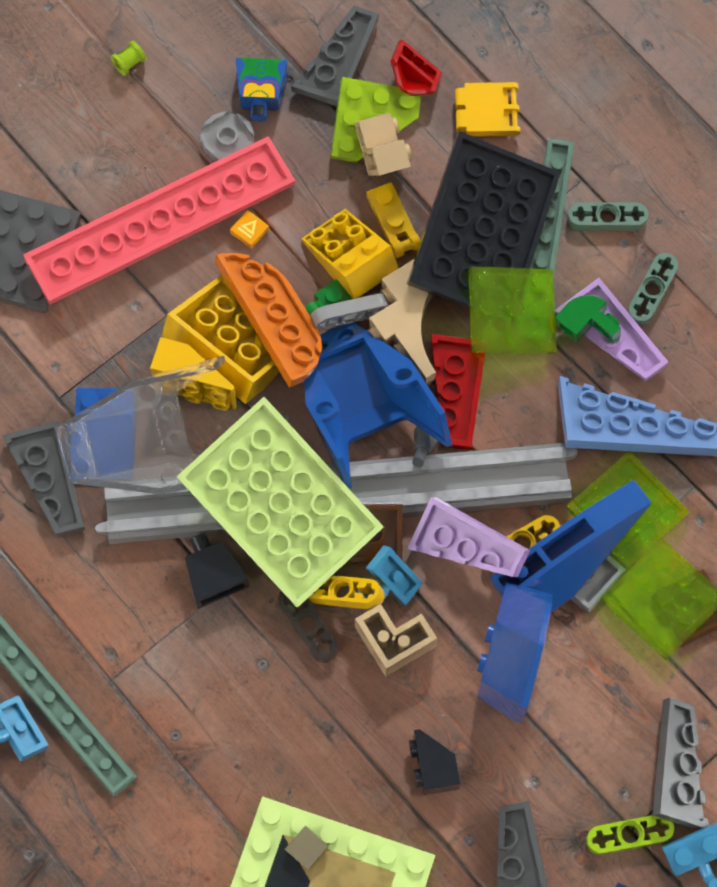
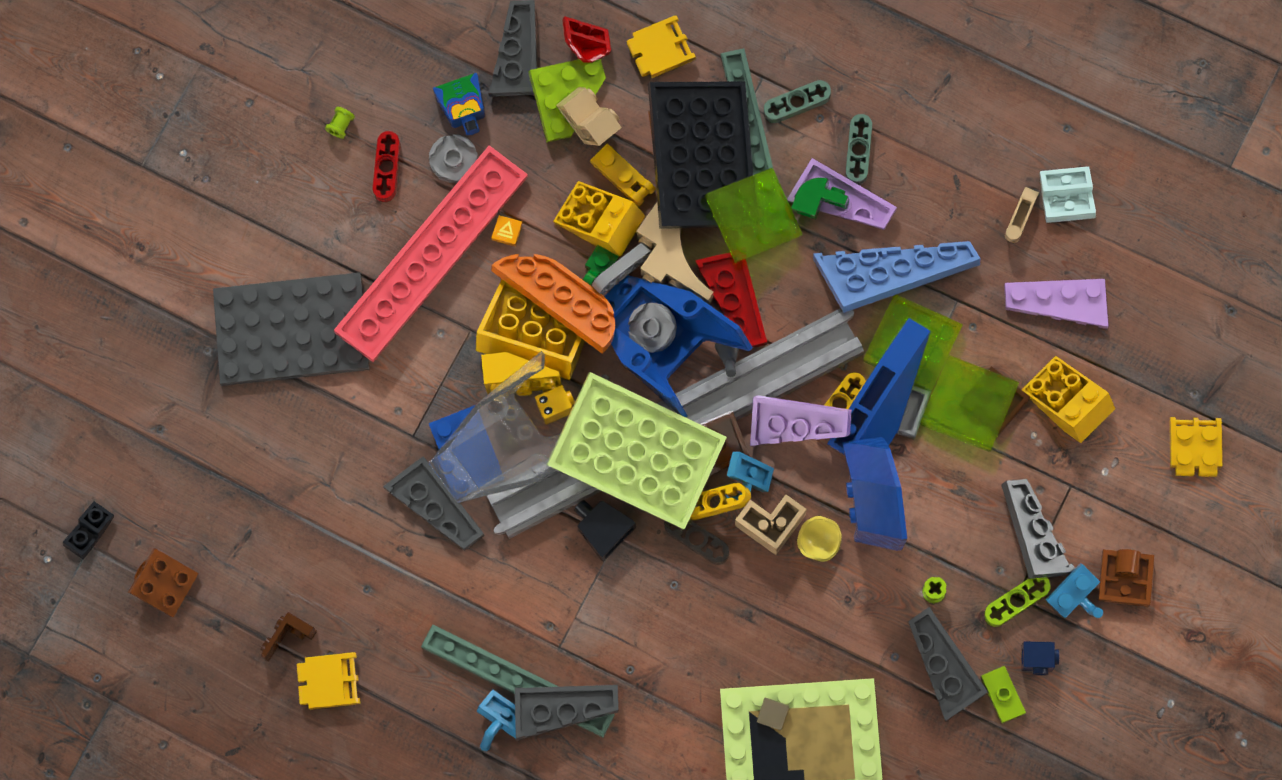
camera: 15 degrees left, 5 degrees up
(78, 743) = (553, 708): none -> dark grey wing
(155, 130) = (381, 149): none -> red beam
(216, 420) = (555, 404): none -> yellow brick
(356, 383) = (652, 327): none -> light grey tile
(436, 765) = (845, 608): black slope -> none
(439, 677) = (819, 538): none -> light yellow helmet
(538, 793) = (934, 582): none -> lime bush

